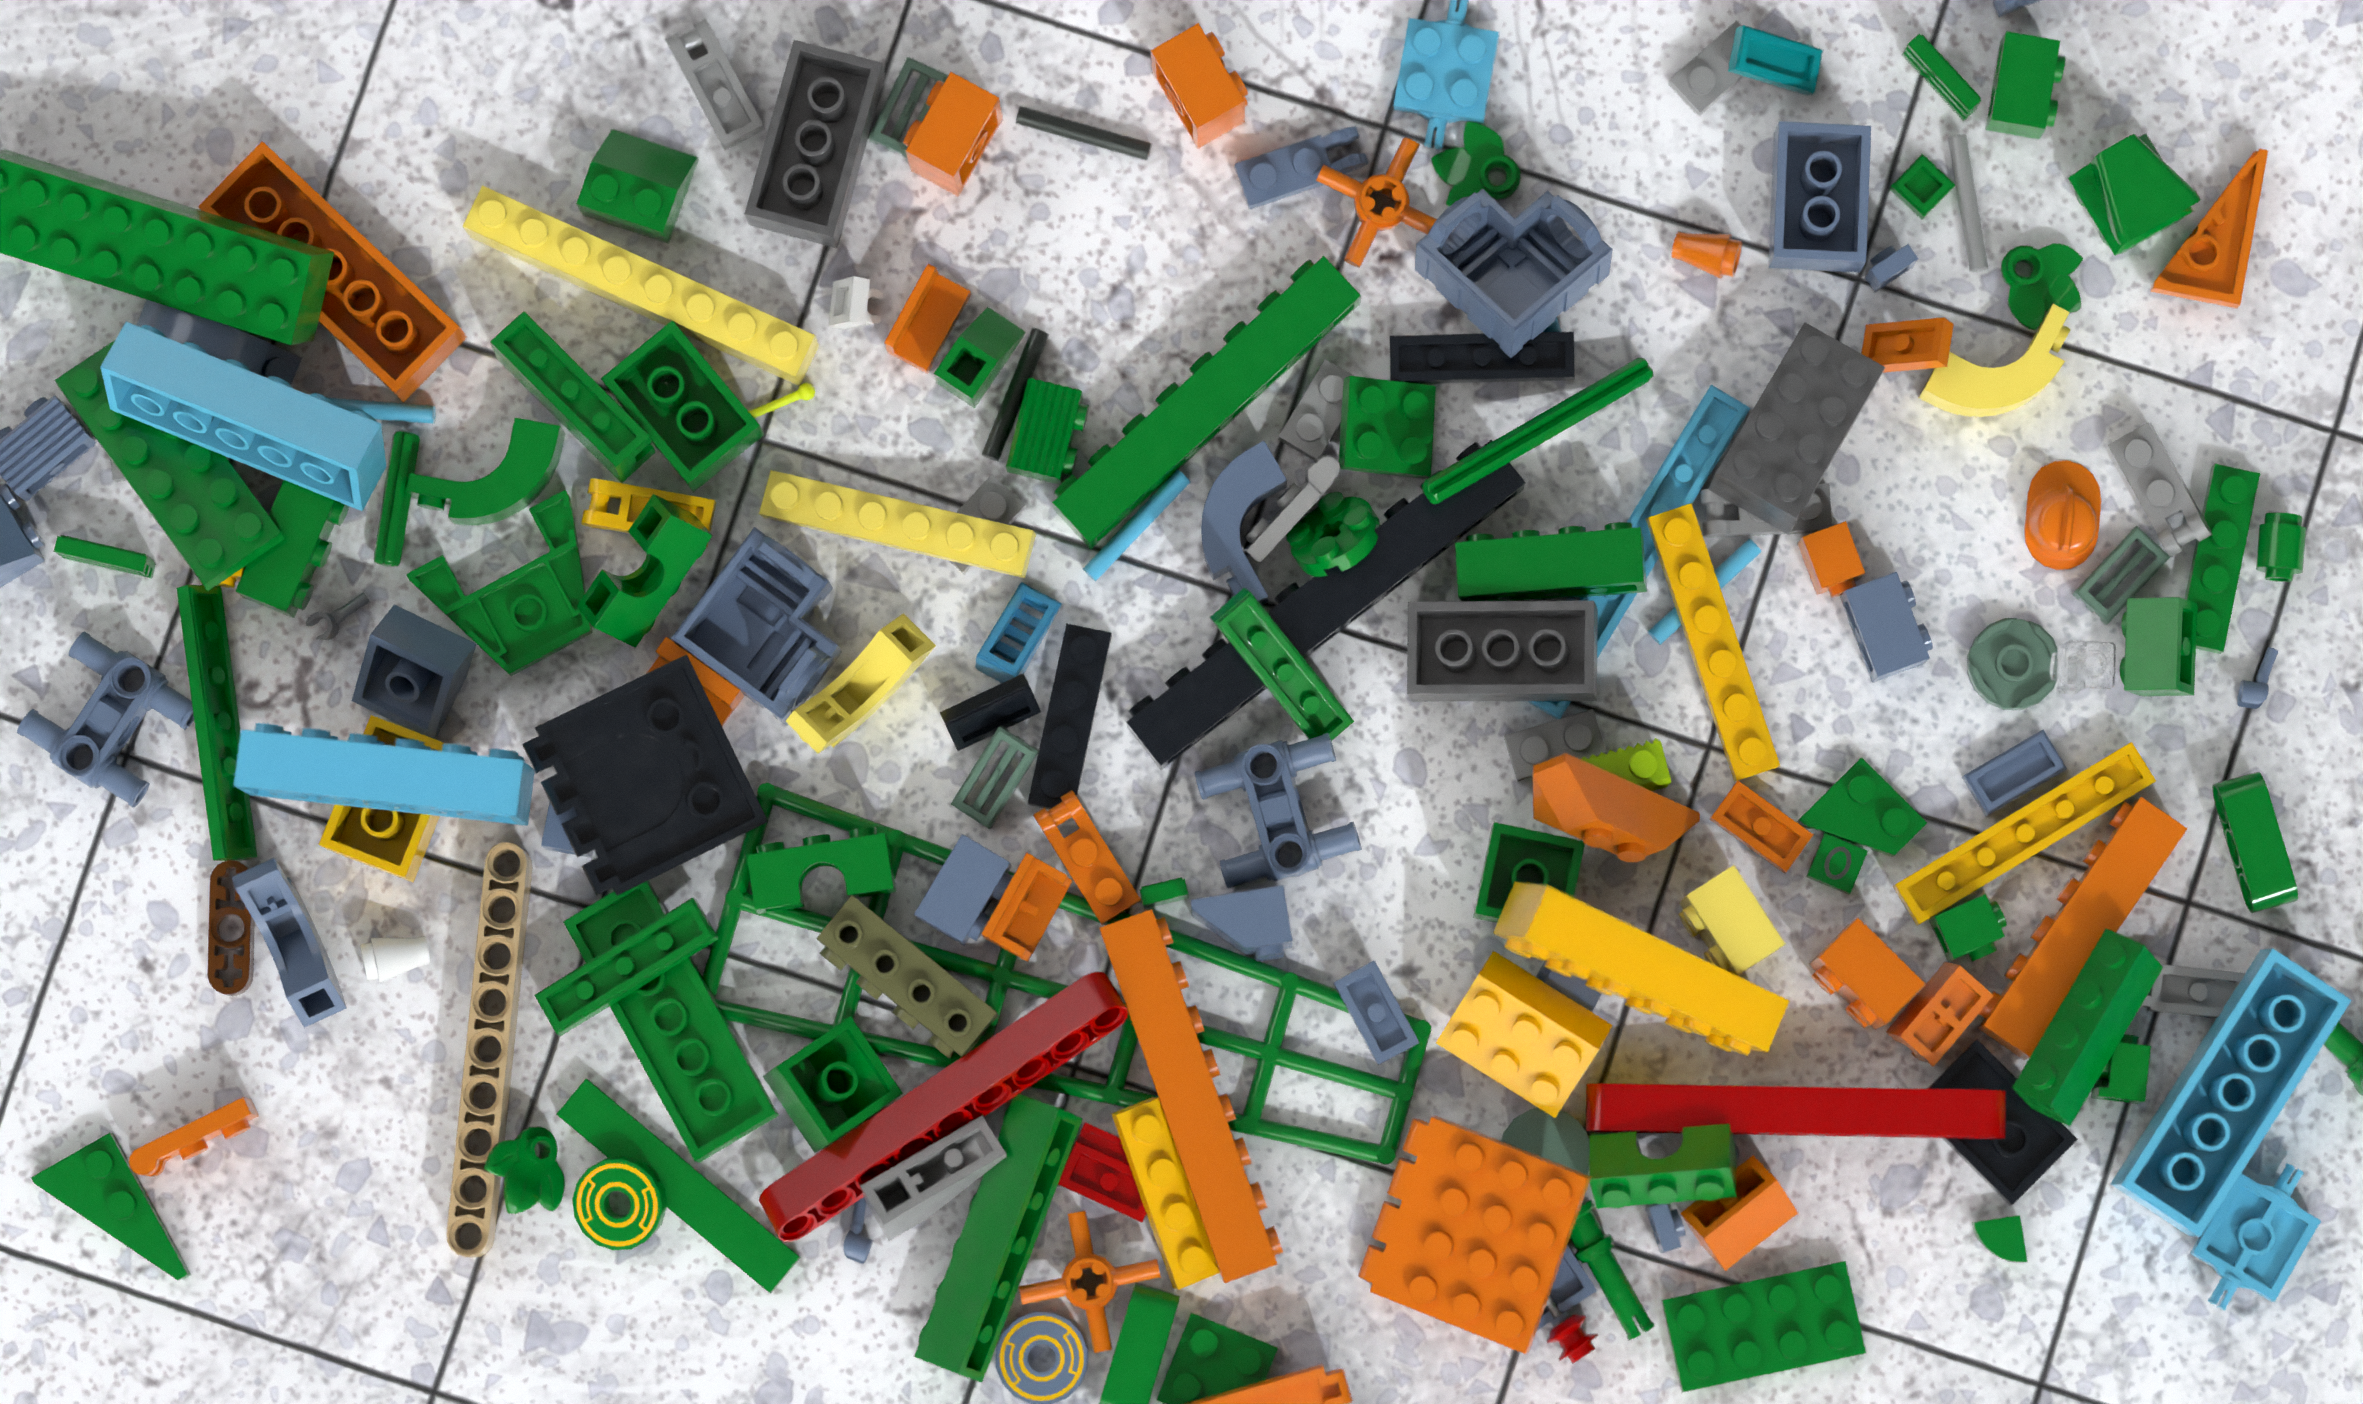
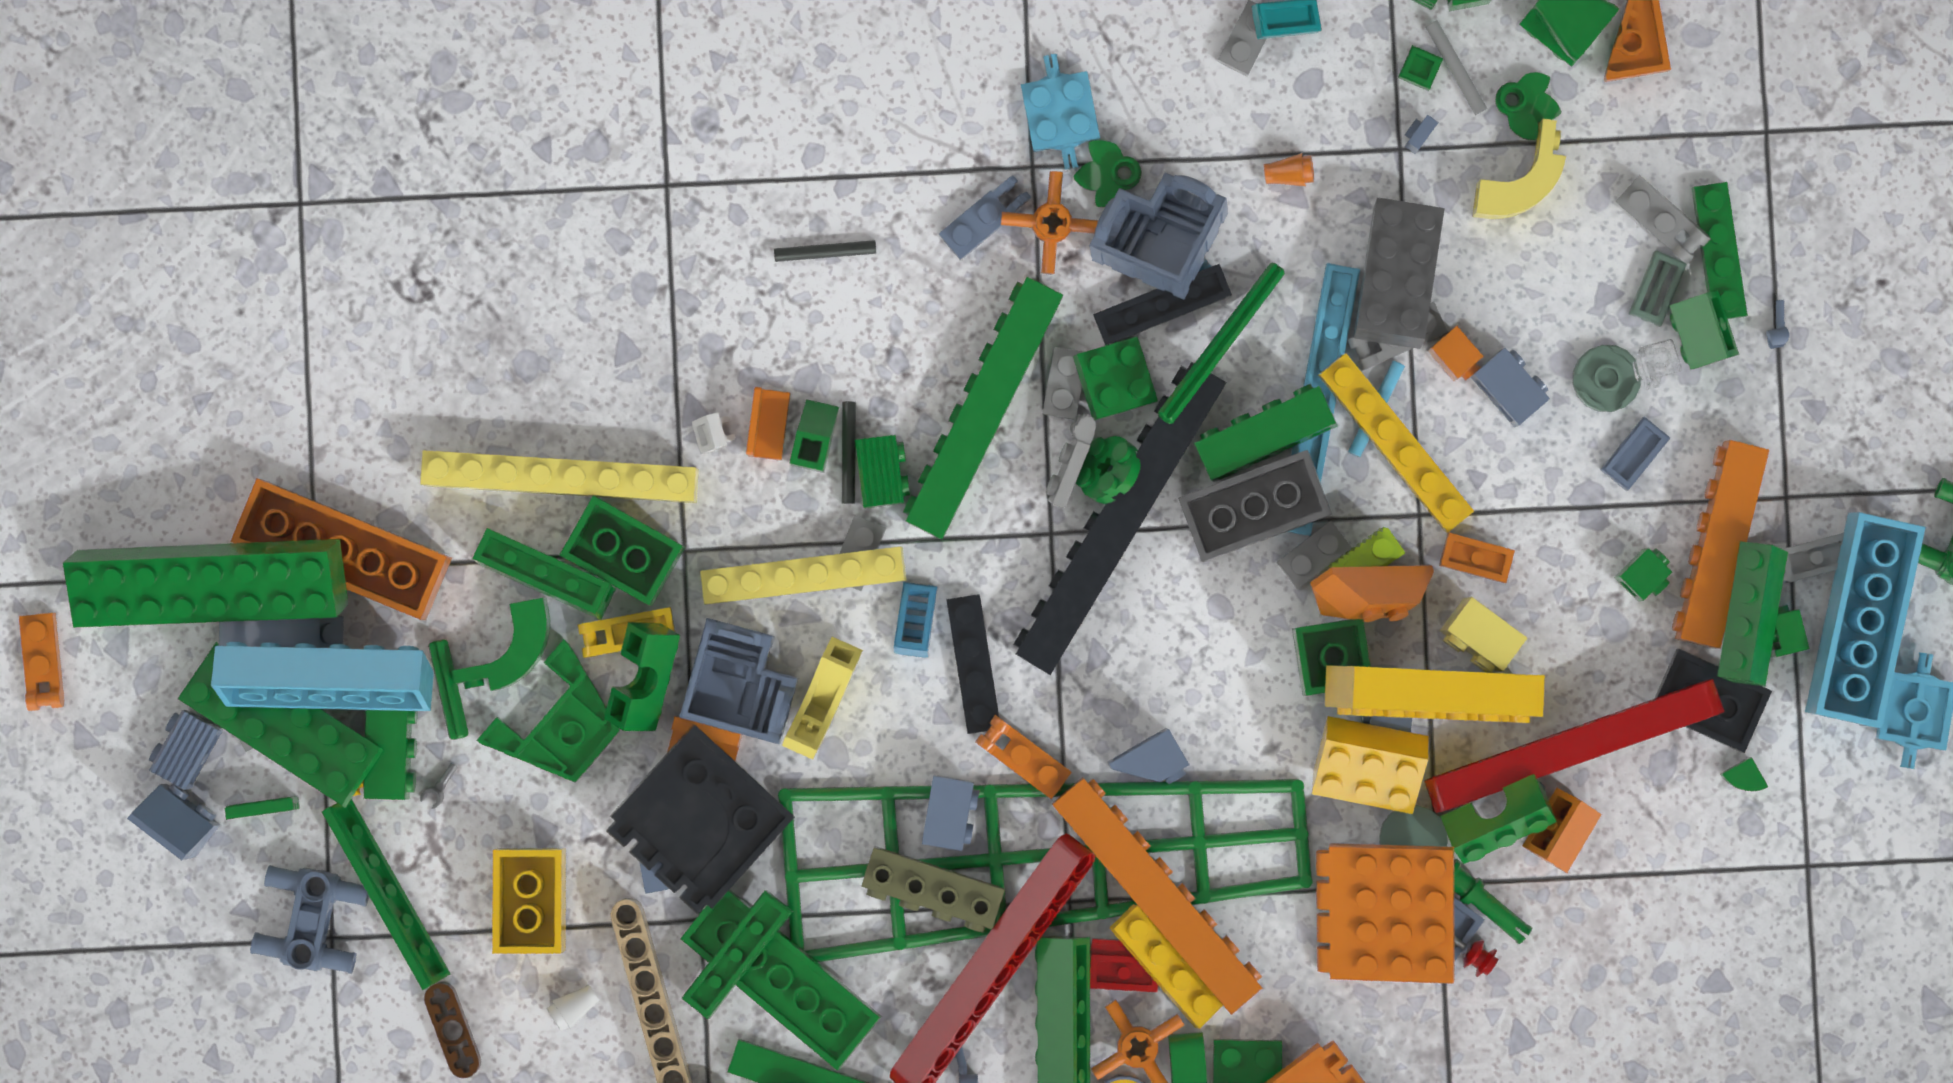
camera: 25 degrees left, 5 degrees up
(292, 941) = (501, 1025): sand blue arch -> none
(384, 776) = (521, 893): medium azure brick -> none
(389, 410) = (406, 633): medium azure bar -> none
(413, 671) = (508, 805): sand blue slope -> none
(637, 185) = (529, 405): green slope -> none
(716, 85) = (556, 315): light grey plate -> none
(780, 872) = (817, 850): green arch -> none
(805, 392) = (702, 506): neon yellow hinge -> none
(815, 144) = (642, 331): flat silver brick -> none
(832, 1084) = (910, 980): green slope -> none
(893, 142) = (694, 308): sand green tile -> none
(931, 1177) = (1003, 1017): light grey slope -> none
(952, 133) = (736, 288): orange brick -> none
(984, 713) = (918, 681): black tile -> none
(1016, 743) = (943, 696): sand green tile -> none
(1027, 907) = (996, 808): orange hinge -> none
(1136, 525) = (967, 512): medium azure bar -> none
(1164, 892) = (1085, 760): green tile -> none
(1198, 84) = (894, 189): orange brick -> none
(1233, 495) = (1026, 470): sand blue arch -> none
(1277, 810) = (1142, 674): sand blue piece -> none
(1280, 667) = (1108, 577): green tile -> none
(1376, 1012) = (1263, 788): sand blue plate -> none
(1666, 1226) = (1515, 858): sand blue plate -> none
(1763, 1326) = (1605, 899): green plate -> none
(1819, 197) = (1353, 104): sand blue brick -> none
(1836, 863) = (1537, 563): green tile -> none
(1865, 812) = (1543, 520): green wing -> none
(1865, 975) = (1587, 634): orange brick -> none
(1909, 344) = (1453, 185): orange plate -> none
(1940, 1013) = (1646, 640): orange hinge -> none
(2024, 833) = (1658, 493): yellow plate -> none
(2062, 515) = (1601, 261): orange piece -> none
(2255, 842) = (1817, 439): green beam -> none
(2281, 546) = (1760, 227): green brick -> none

